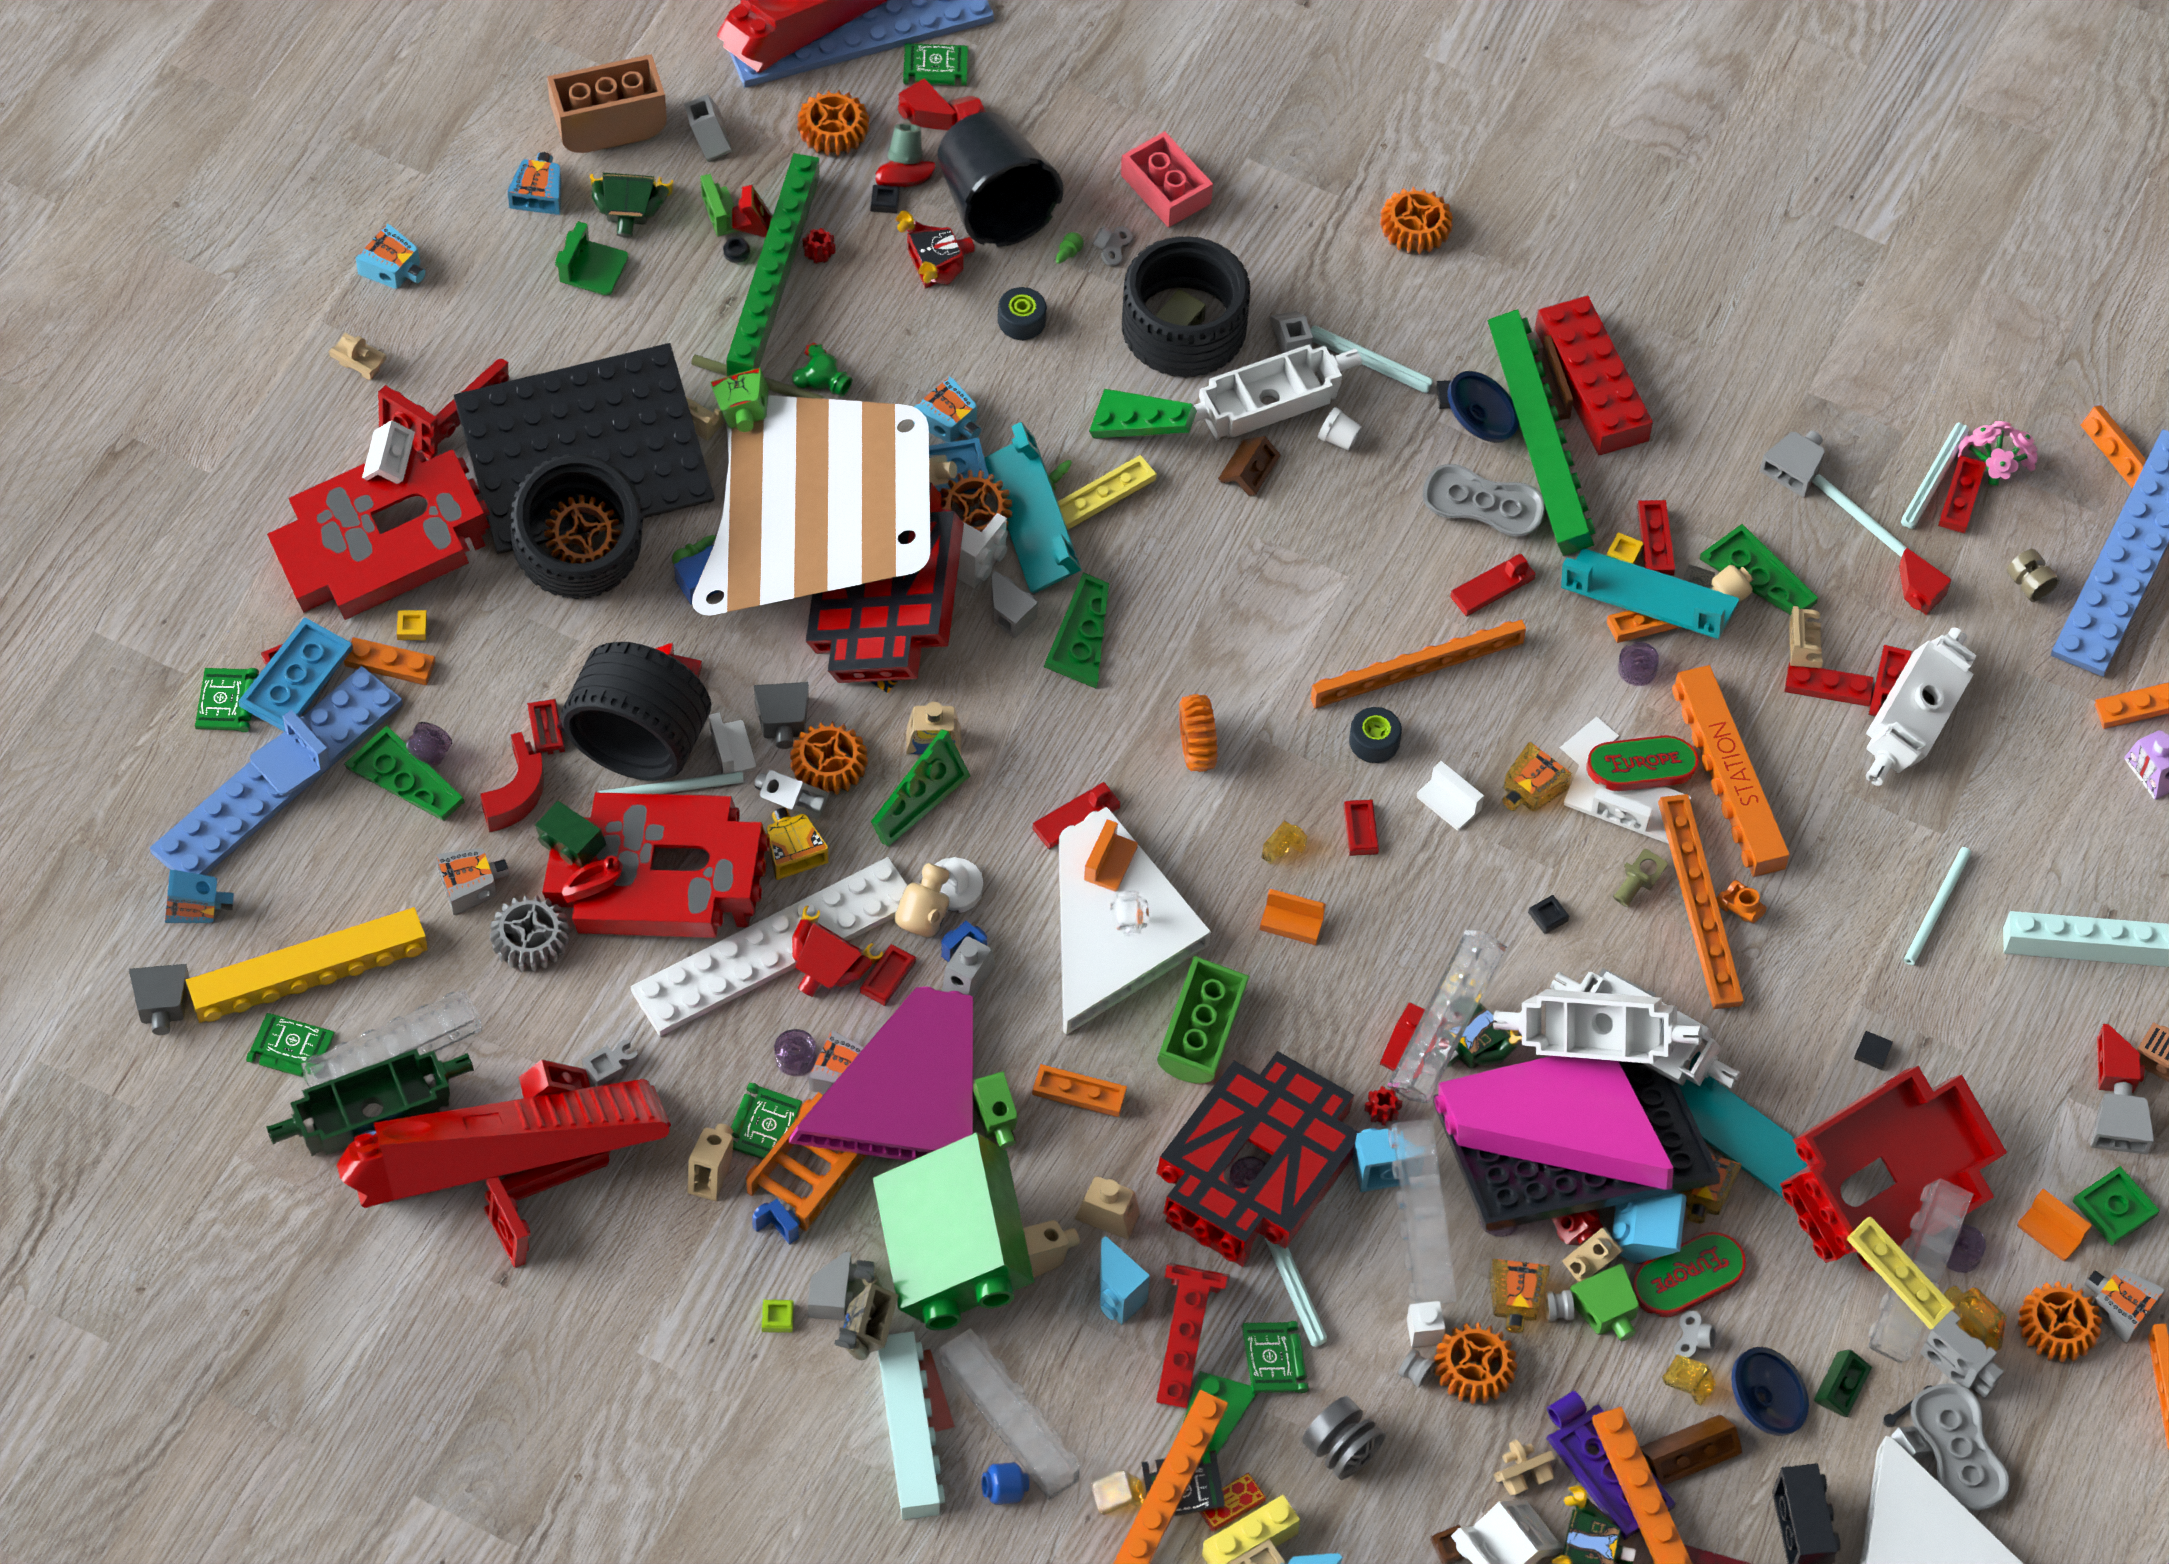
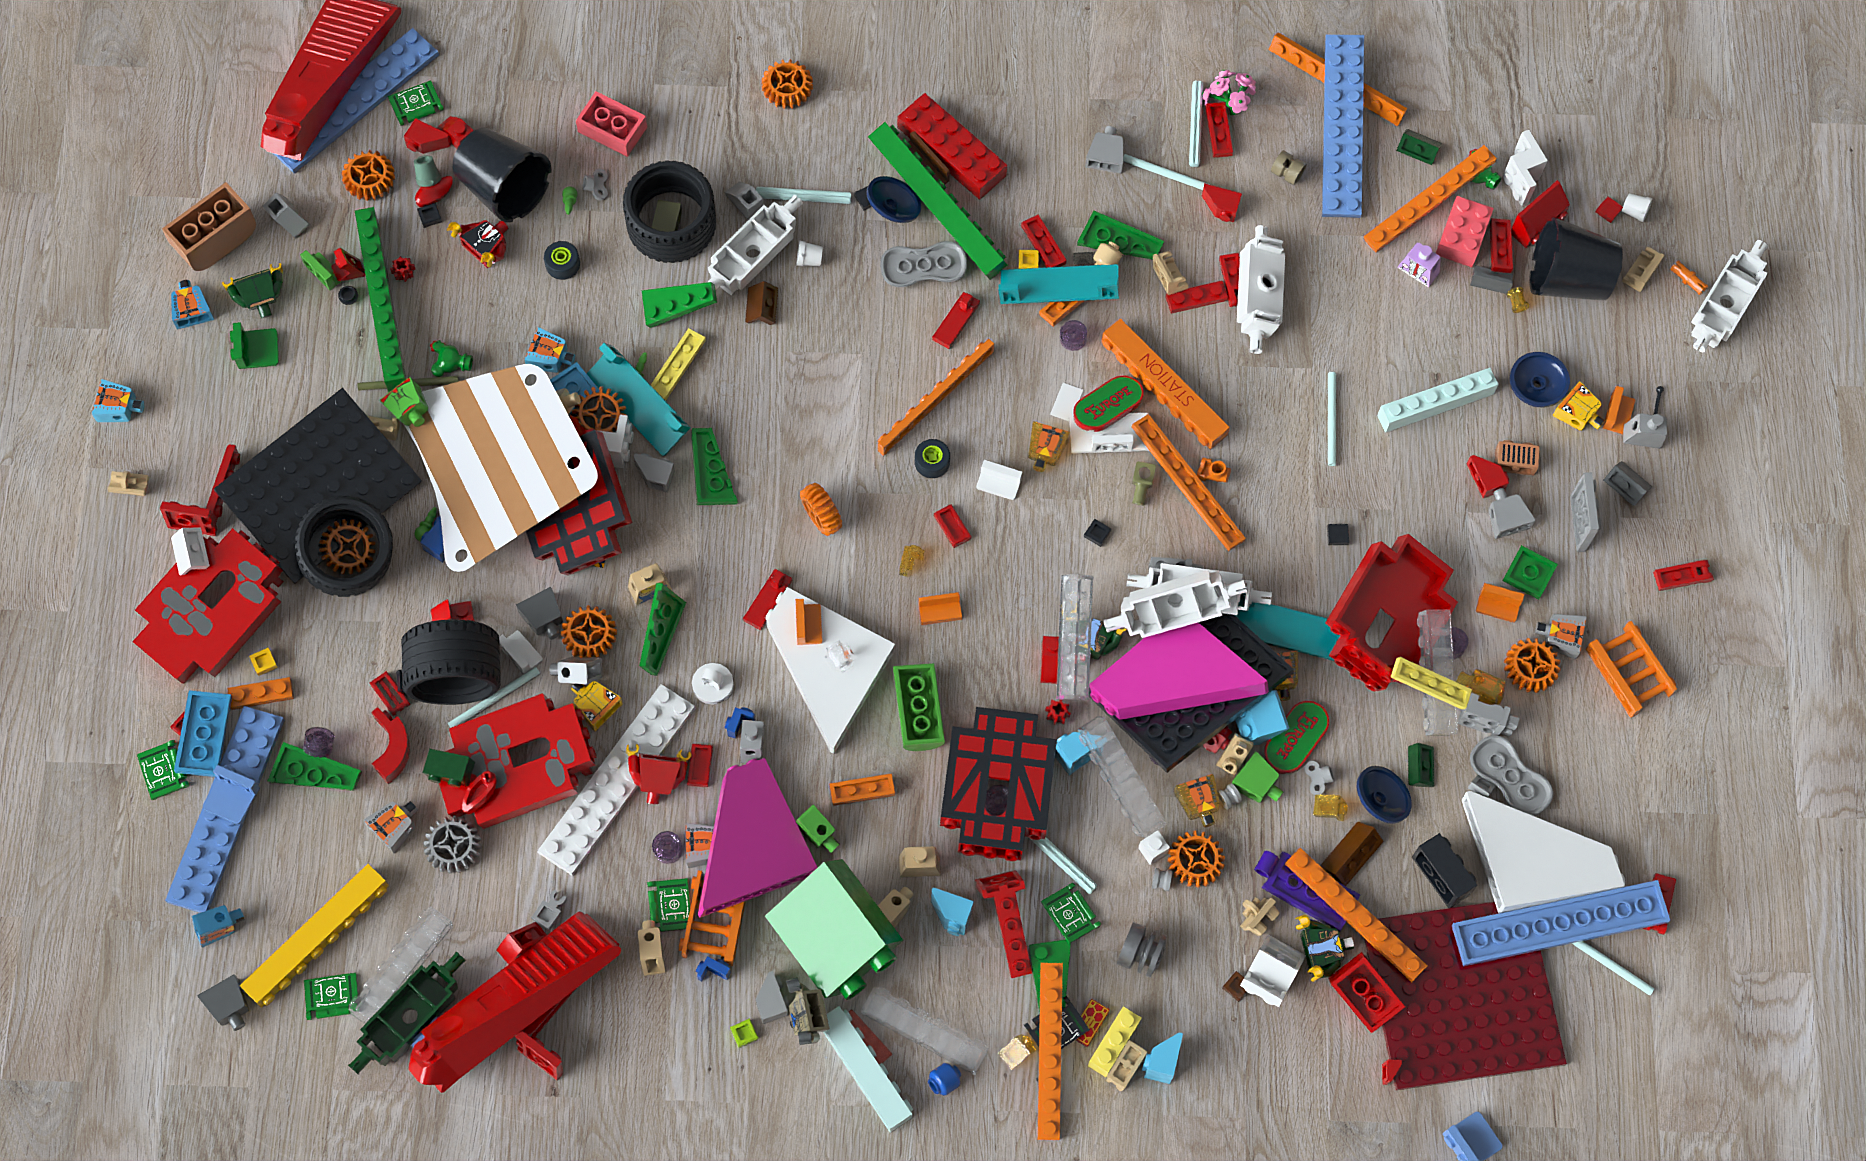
camera: 25 degrees left, 10 degrees up
(923, 904) = (702, 708): tan piece -> none
(1890, 1419) = (1460, 776): black hinge -> none

